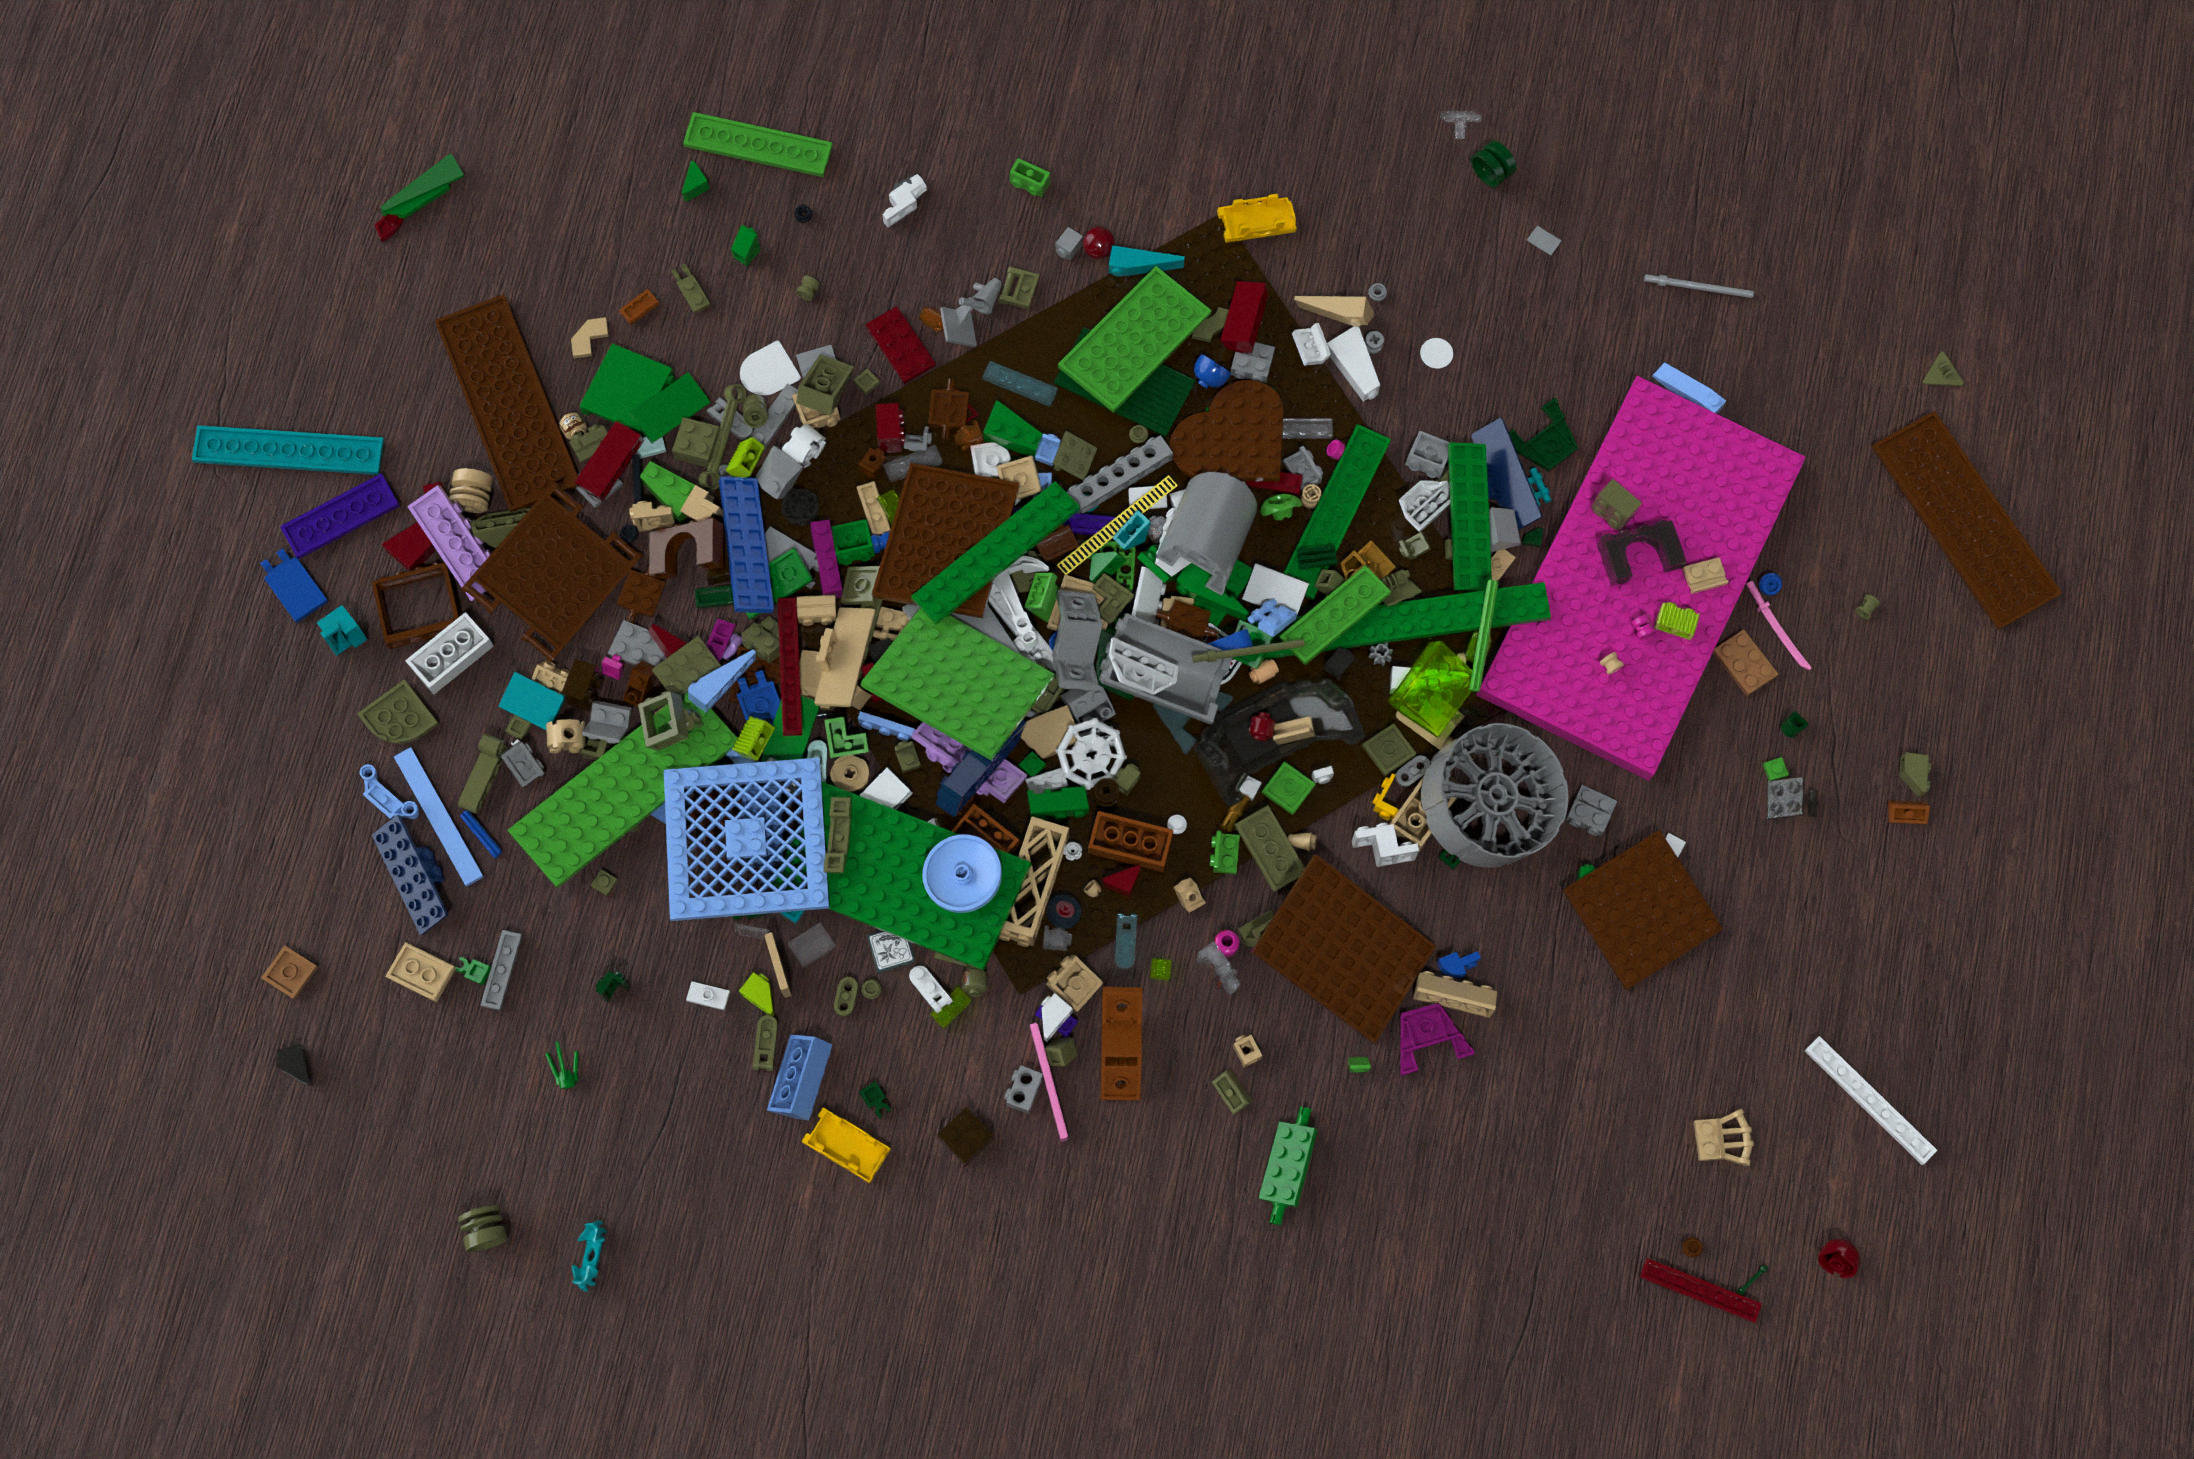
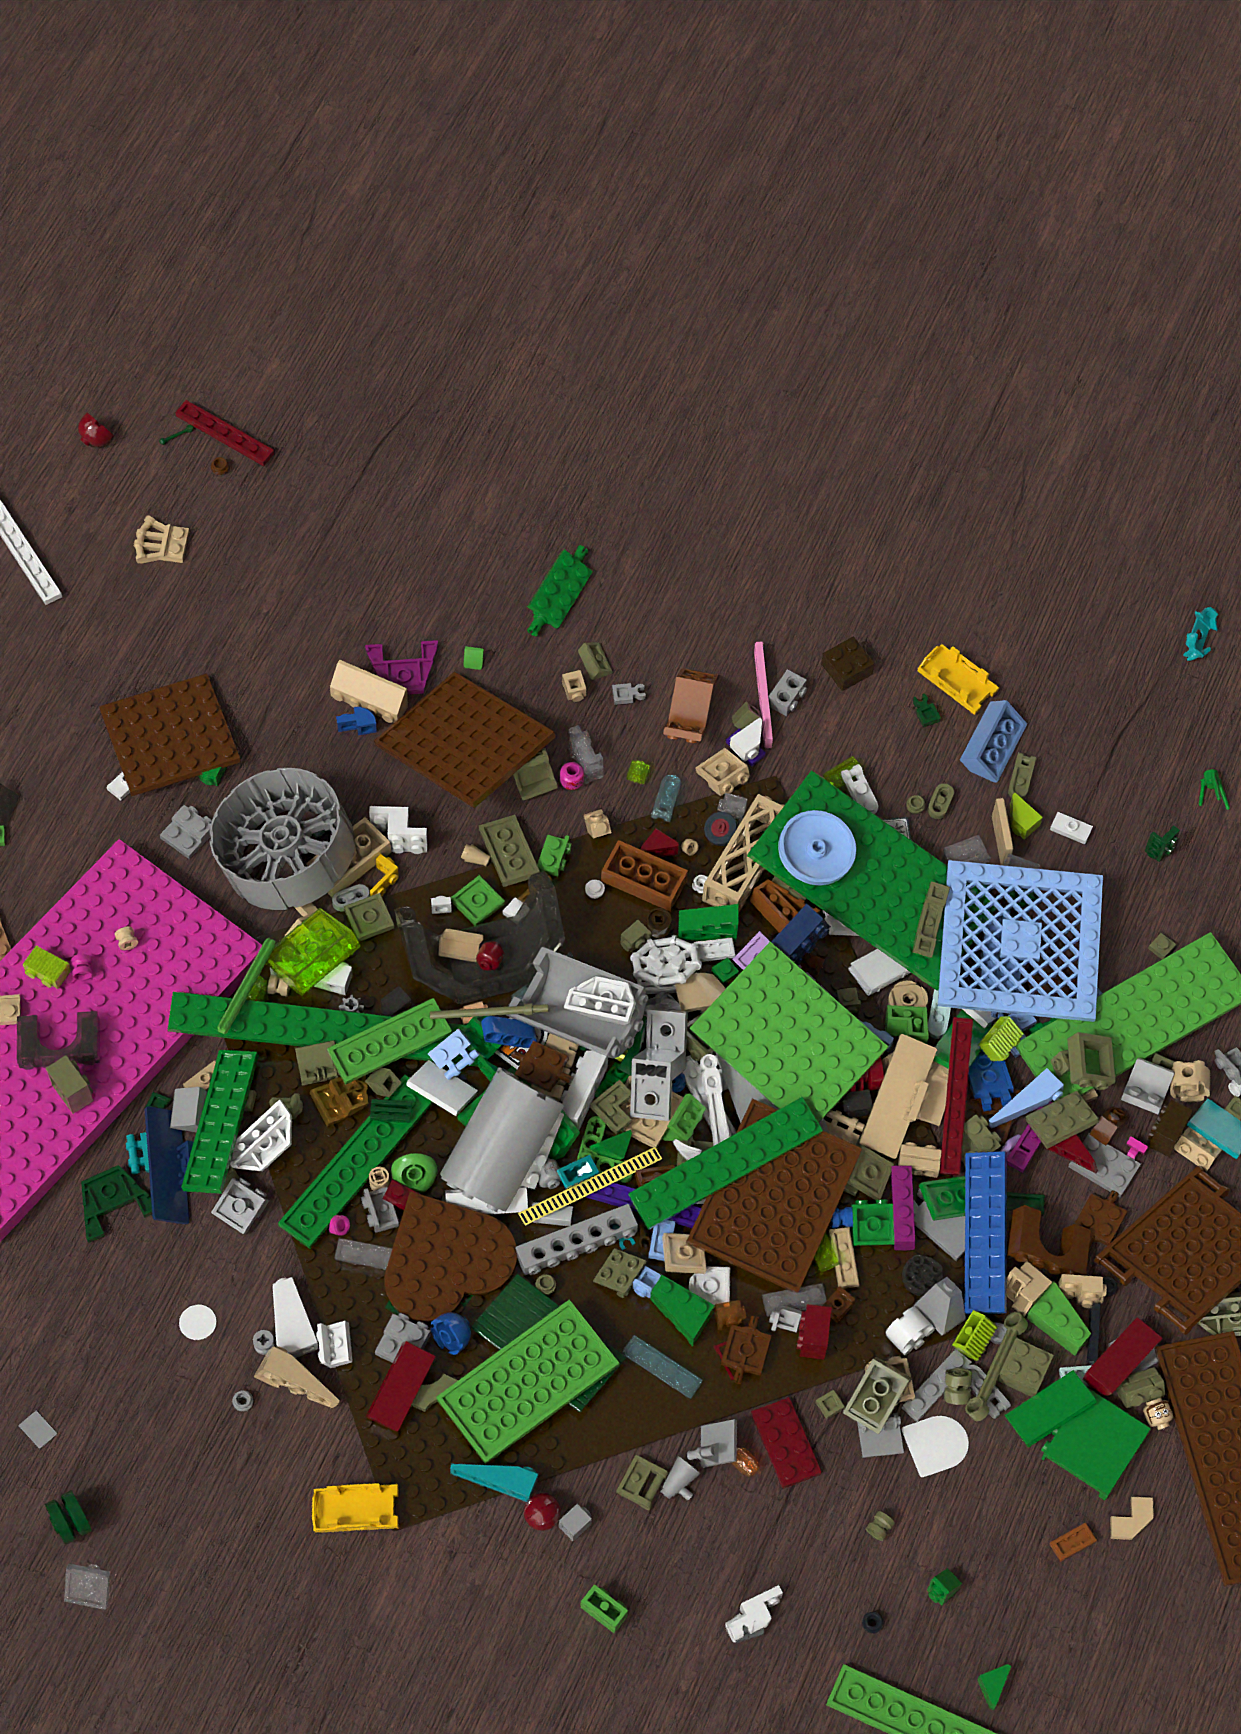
camera: 170 degrees left, 10 degrees down
(691, 290) = (1012, 1553): olive hinge -> none
(1193, 1054) = (624, 693): none -> light grey plate

